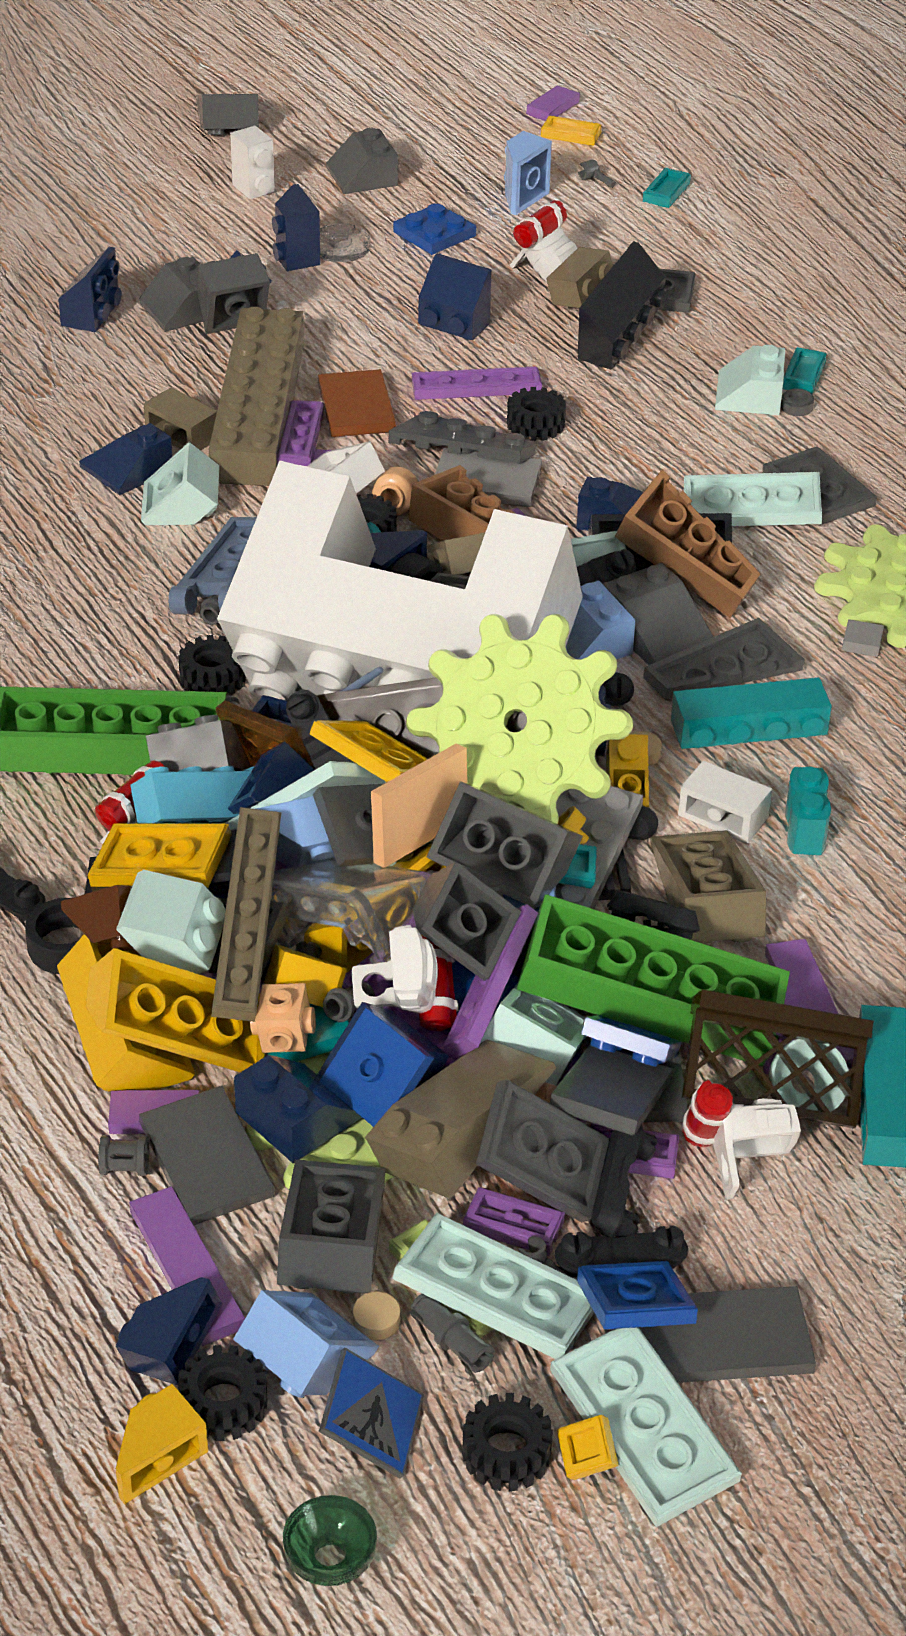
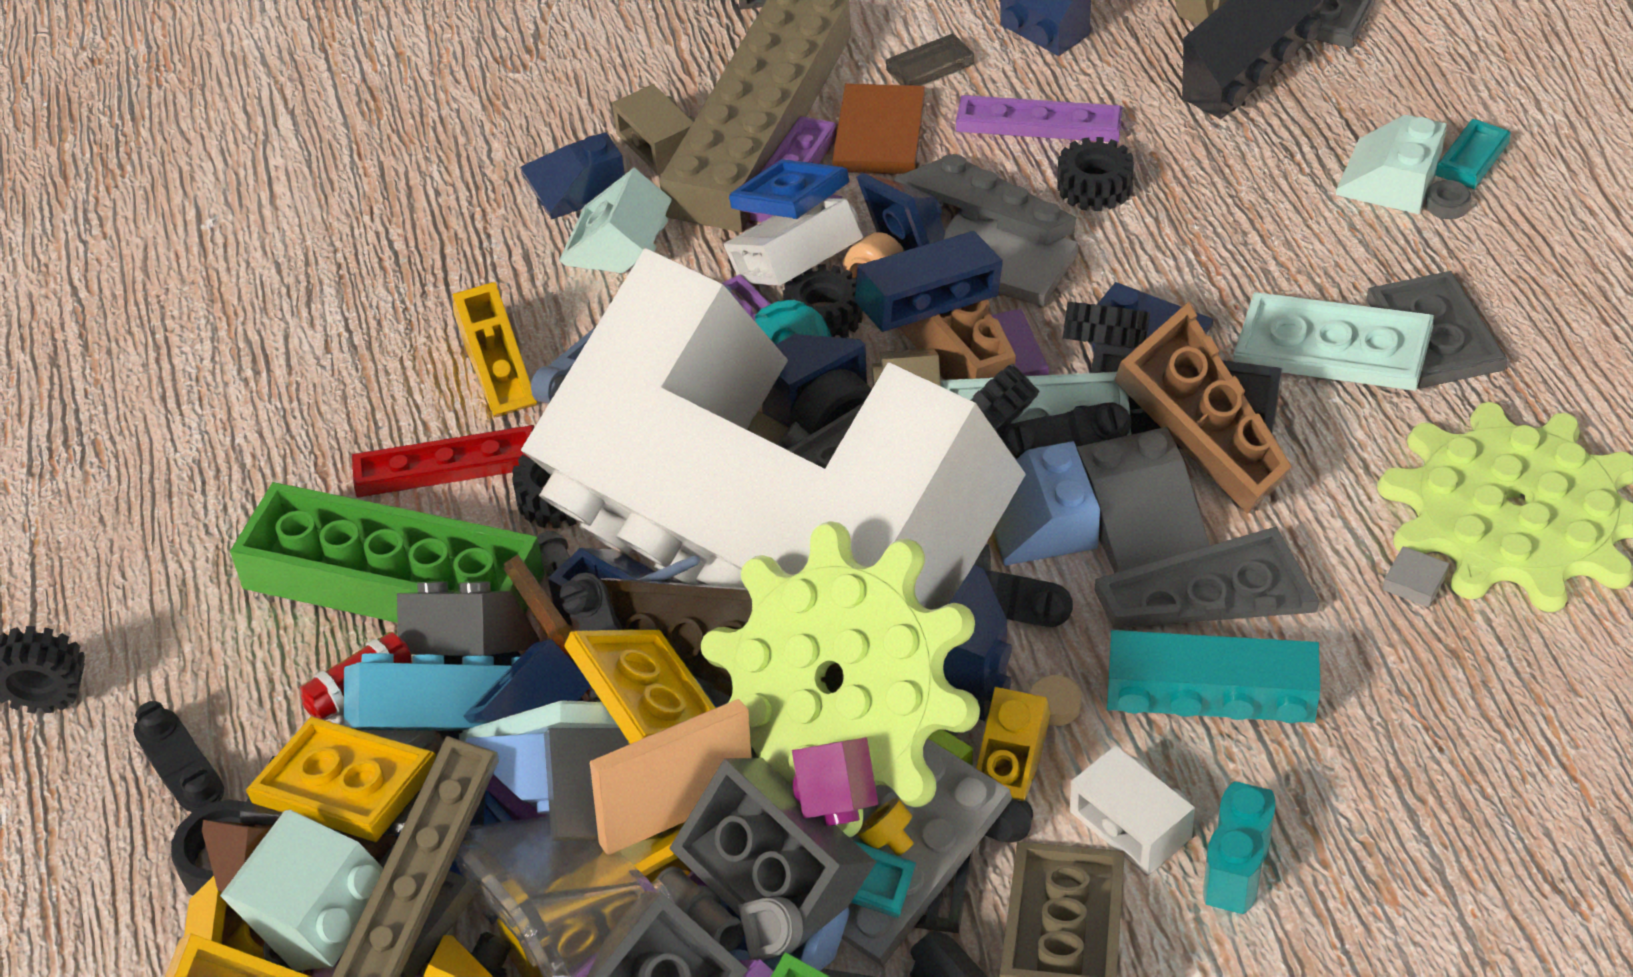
camera: 20 degrees right, 5 degrees up
(114, 664) = (438, 461): none -> red tile
(120, 582) = (493, 349): none -> yellow slope
(316, 443) = (789, 188): none -> blue plate
(376, 352) = (930, 61): none -> clear smoke tile
(406, 449) = (902, 211): none -> dark blue slope
(455, 487) = (928, 280): none -> dark blue brick
(524, 885) = (771, 927): none -> light grey tile
(541, 784) = (834, 780): none -> magenta brick
(594, 498) = (1105, 324): none -> black tyre

